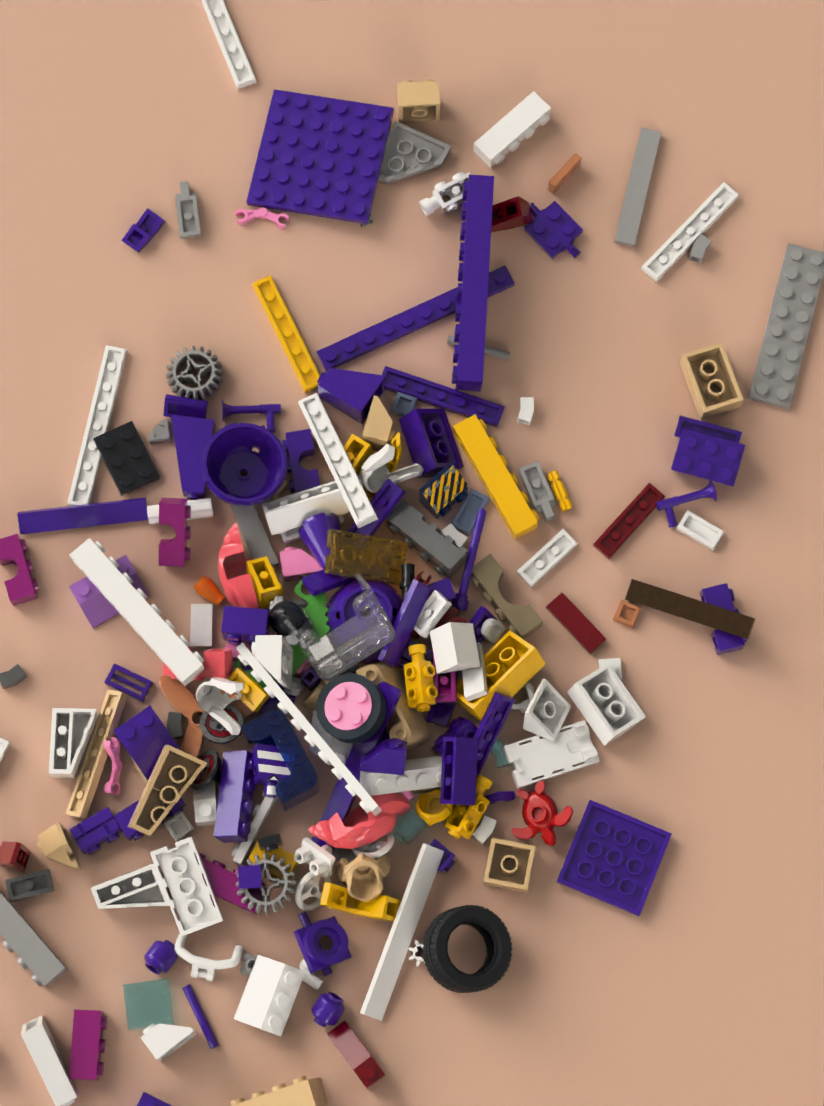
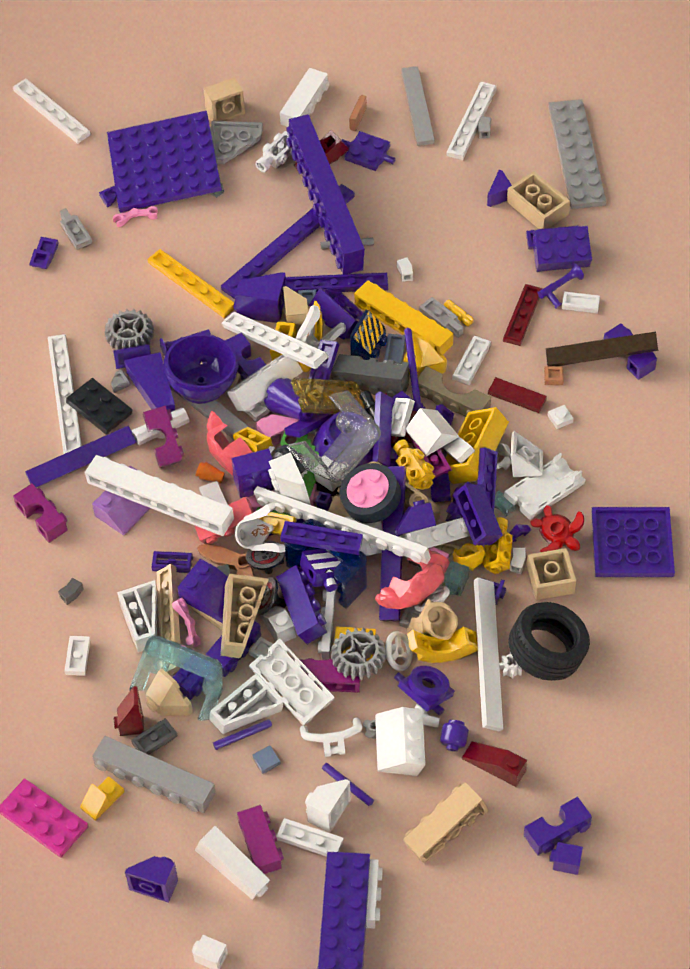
camera: 20 degrees left, 20 degrees down
(83, 826) = (162, 652): none -> clear light blue windscreen
(117, 916) = (242, 734): none -> dark purple bar
(131, 955) = (266, 759): none -> sand blue tile
(137, 1063) = (308, 838): none -> white plate
(148, 1003) = (293, 790): clear light blue tile -> none
(160, 957) = (293, 749): dark purple head -> none
(243, 178) = (108, 196): none -> dark purple tile
(250, 877) = (343, 647): dark purple tile -> none
(270, 843) = (347, 621): black plate -> none
(277, 743) = (321, 537): none -> dark purple plate
(317, 857) = (390, 621): white hips -> none
(492, 630) = (454, 420): white tile -> none
(494, 541) = (427, 356): none -> yellow slope
(606, 704) = (570, 436): white slope -> none
(676, 345) = (498, 190): none -> dark purple slope

